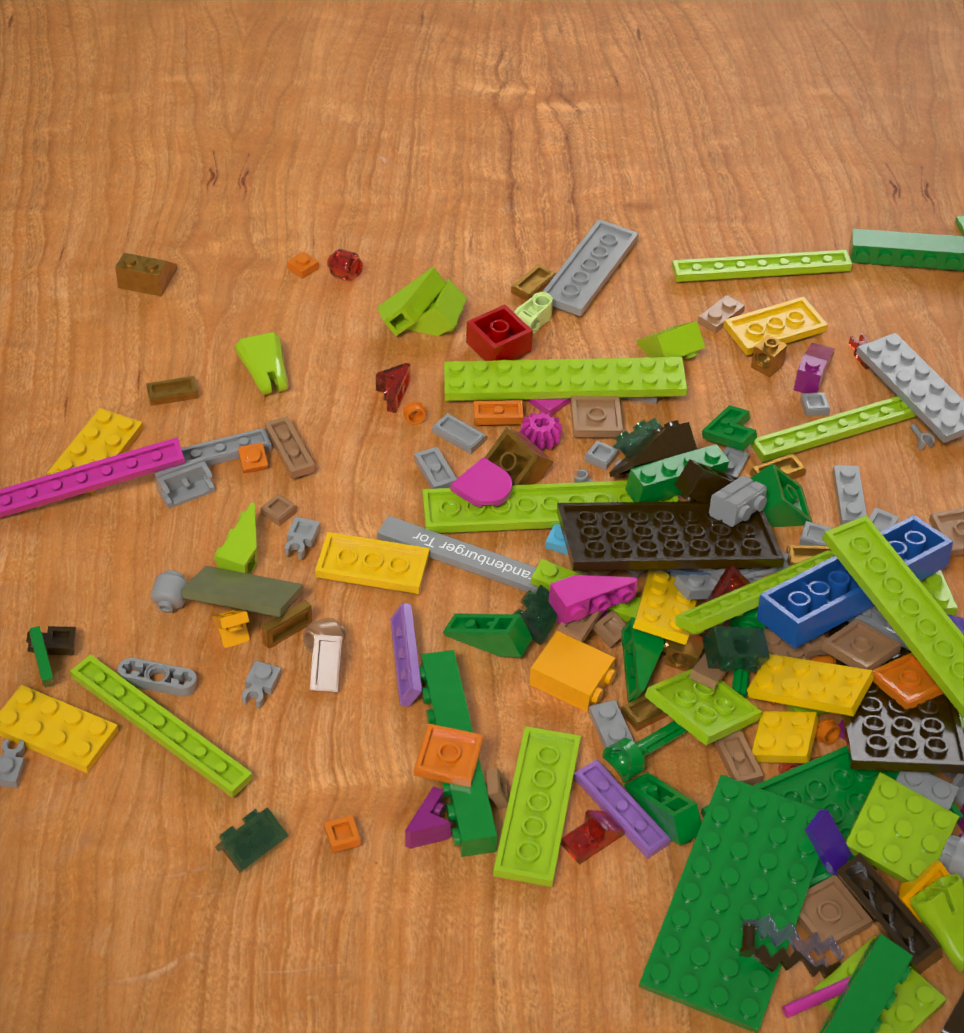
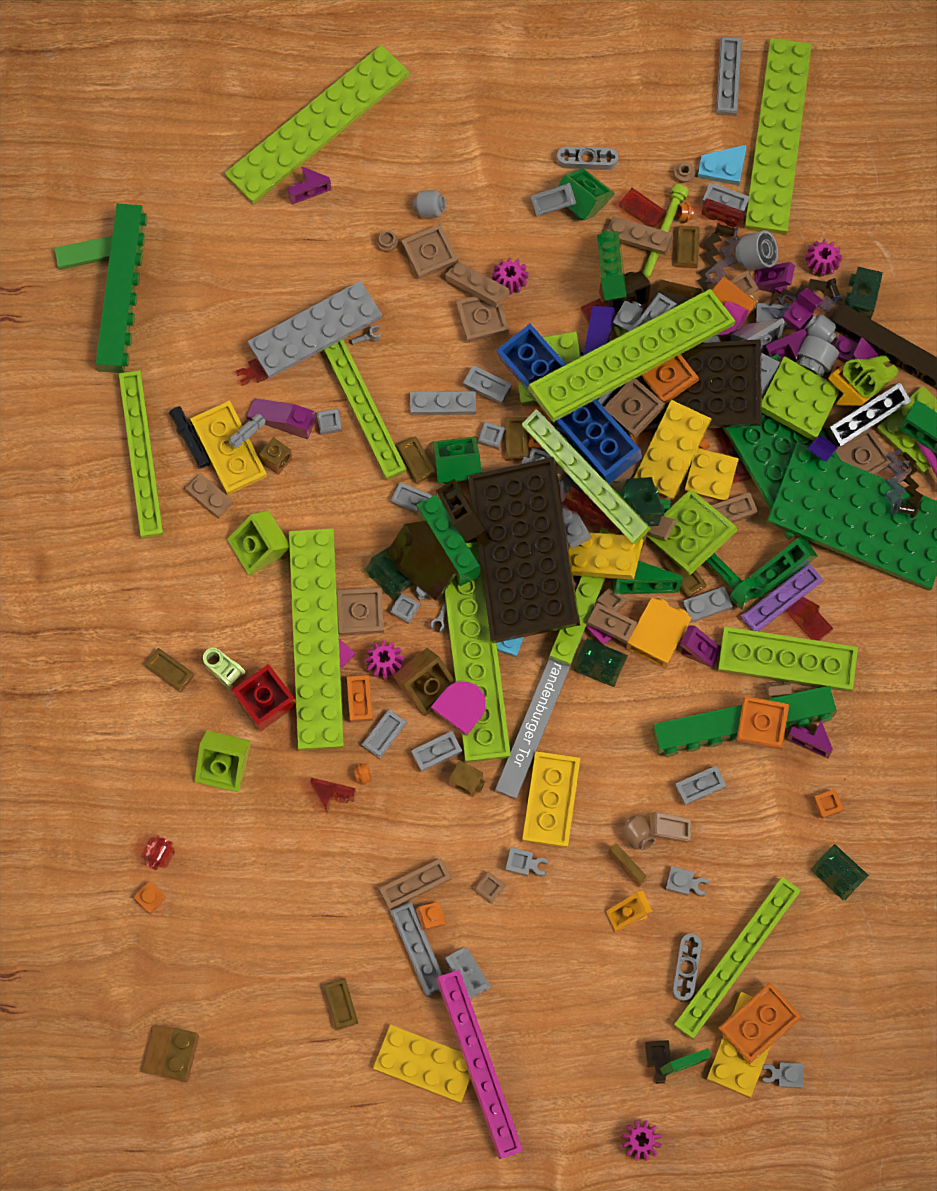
camera: 90 degrees left, 25 degrees up
(73, 733) = (759, 1023): none -> orange tile
(167, 591) = (598, 968): light grey head -> none
(240, 547) = (544, 911): lime slope -> none
(242, 591) = (599, 904): olive tile -> none
(264, 361) = (306, 917): lime piece -> none
(377, 702) = (700, 785): none -> light grey plate
(402, 490) = (467, 779): none -> pearl gold brick
(405, 655) = (652, 765): medium lavender tile -> none
(410, 302) = (231, 785): lime slope -> none
(494, 633) = (623, 701): green slope -> none
(555, 705) = (699, 646): none -> magenta slope
(585, 595) = (603, 621): dark pink slope -> none
(590, 266) = (148, 615): light grey plate -> none
(729, 429) = (374, 500): green plate -> none
(738, 501) = (485, 490): light grey brick -> none
(793, 331) = (247, 431): none -> light grey axle
(807, 290) = (192, 442): none -> black pin

